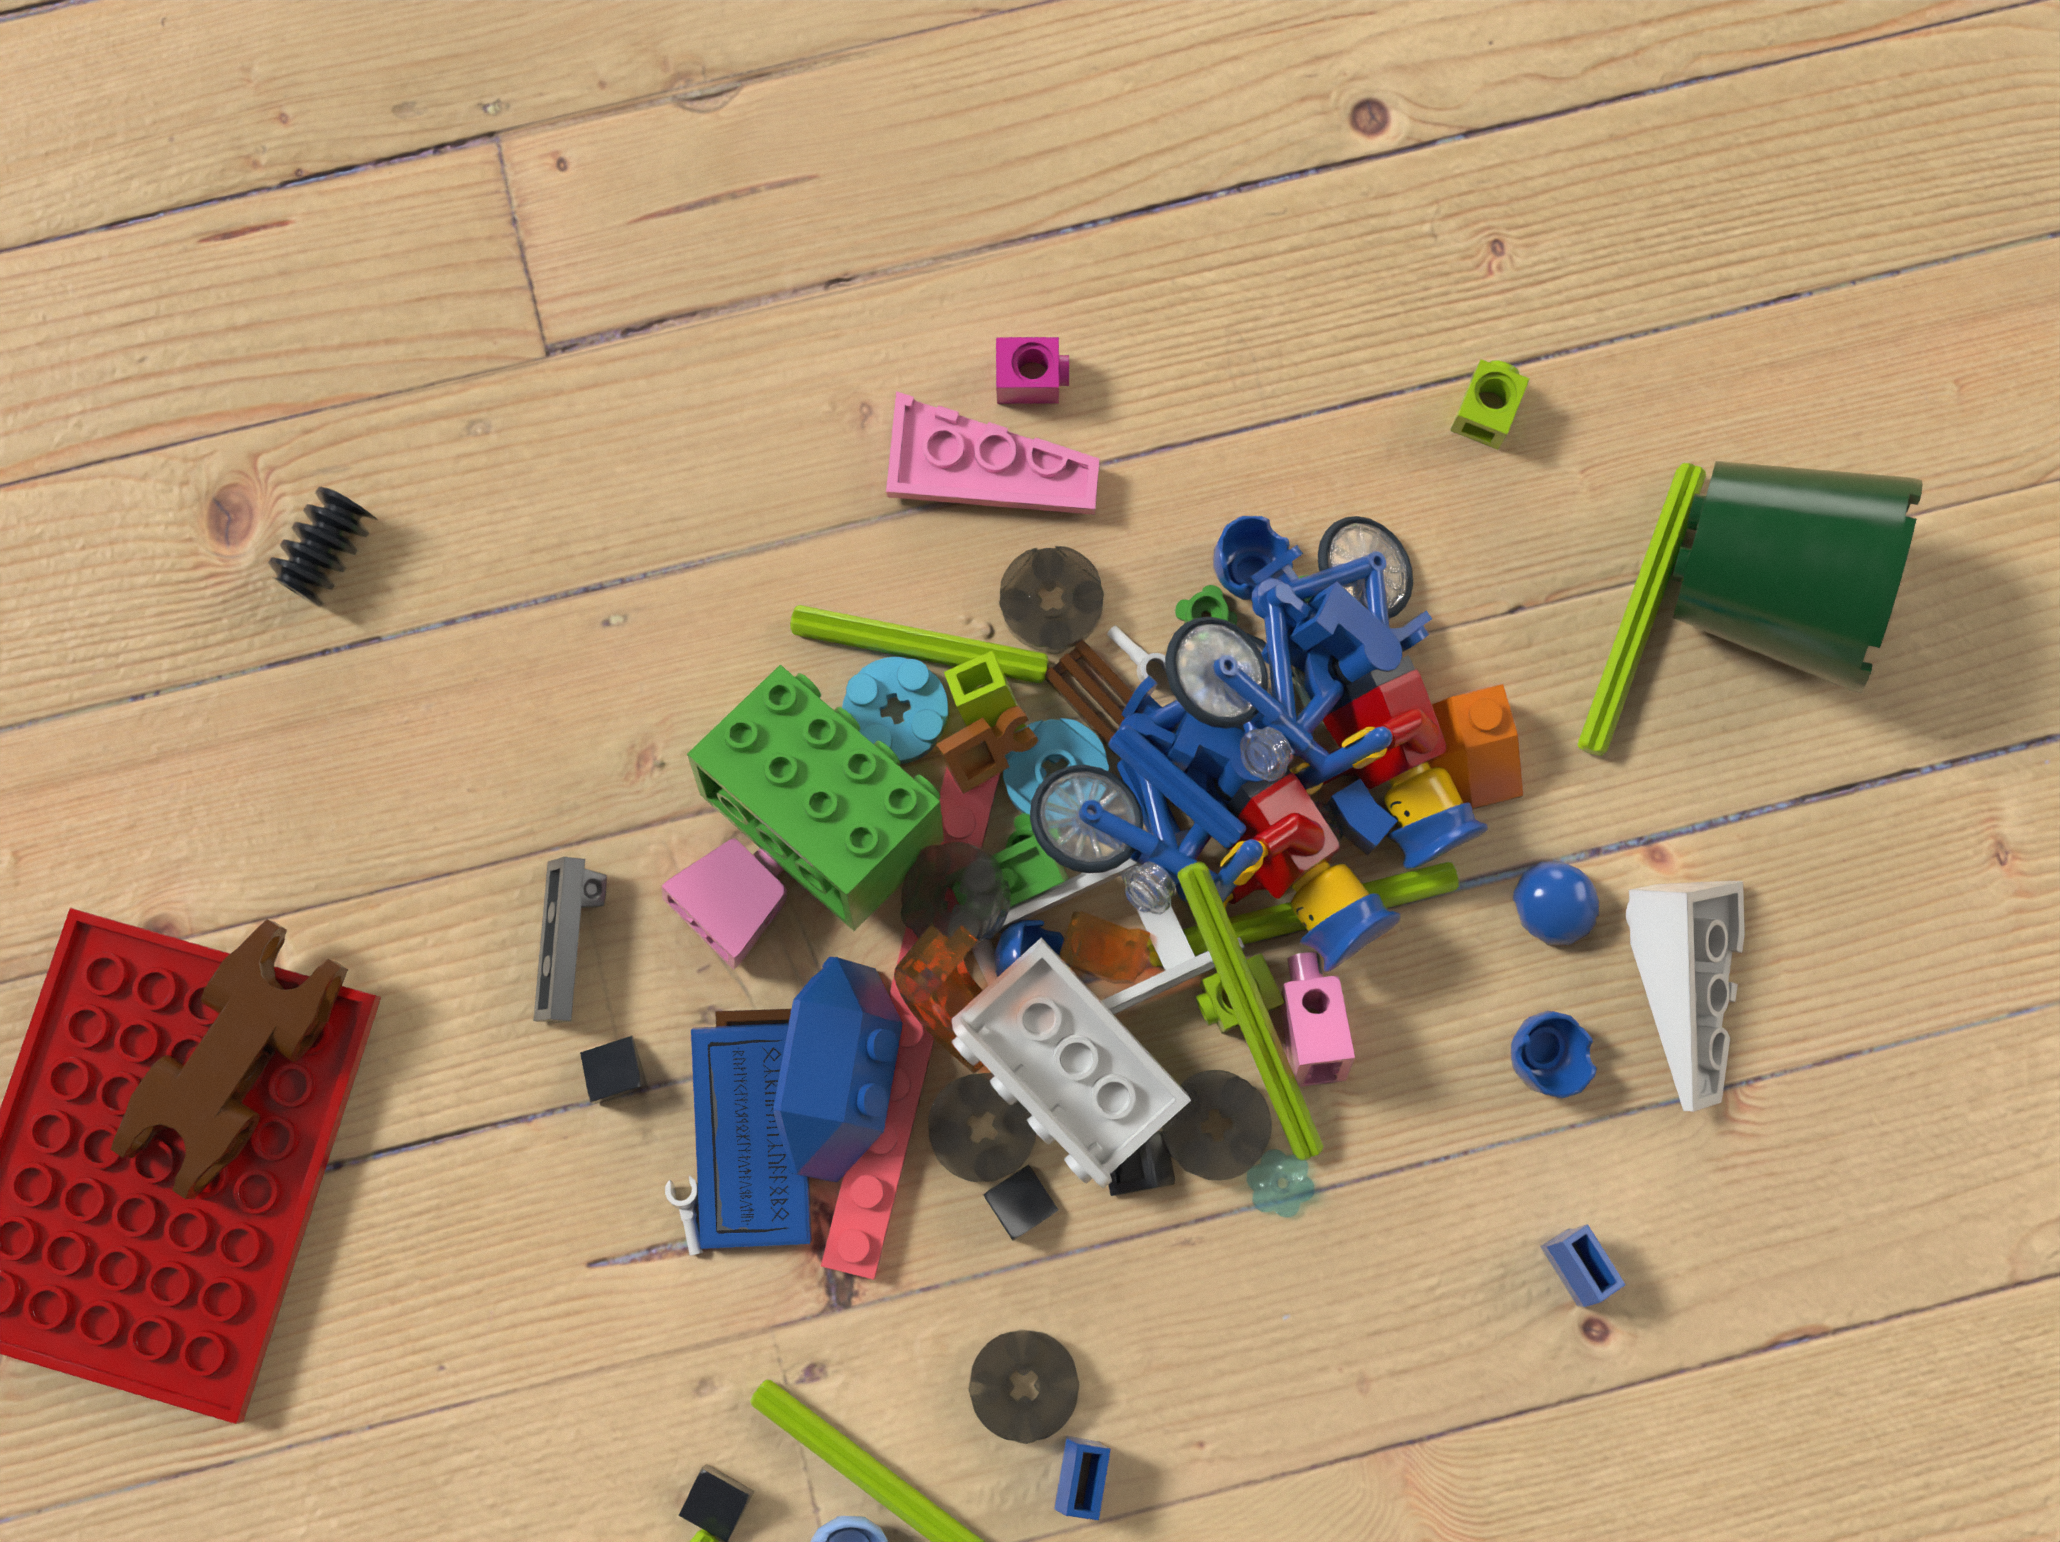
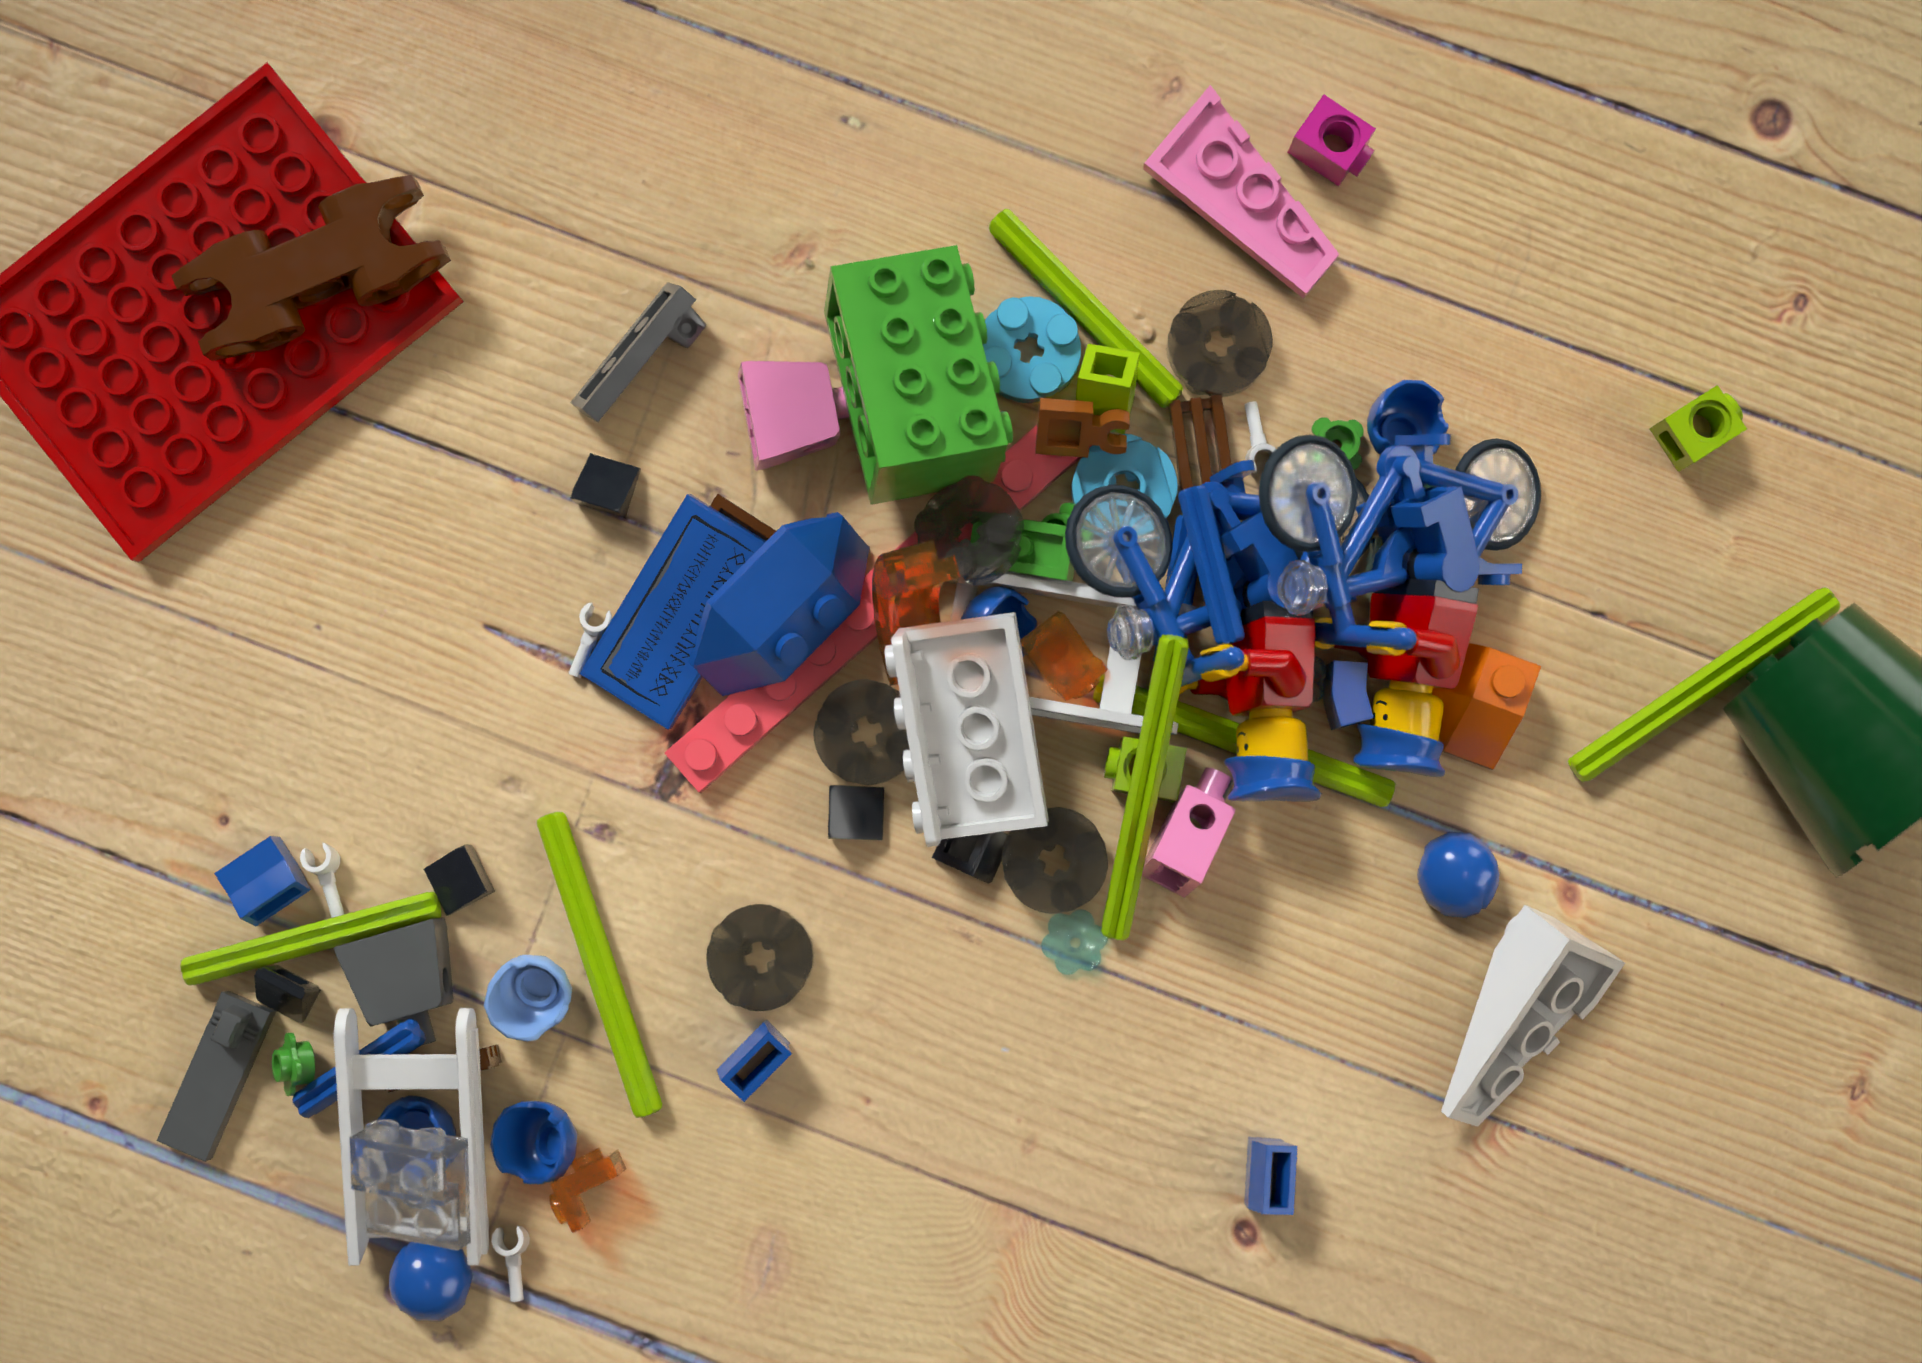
camera: 40 degrees right, 5 degrees up
(1553, 1054) = (1366, 993): blue hair -> none

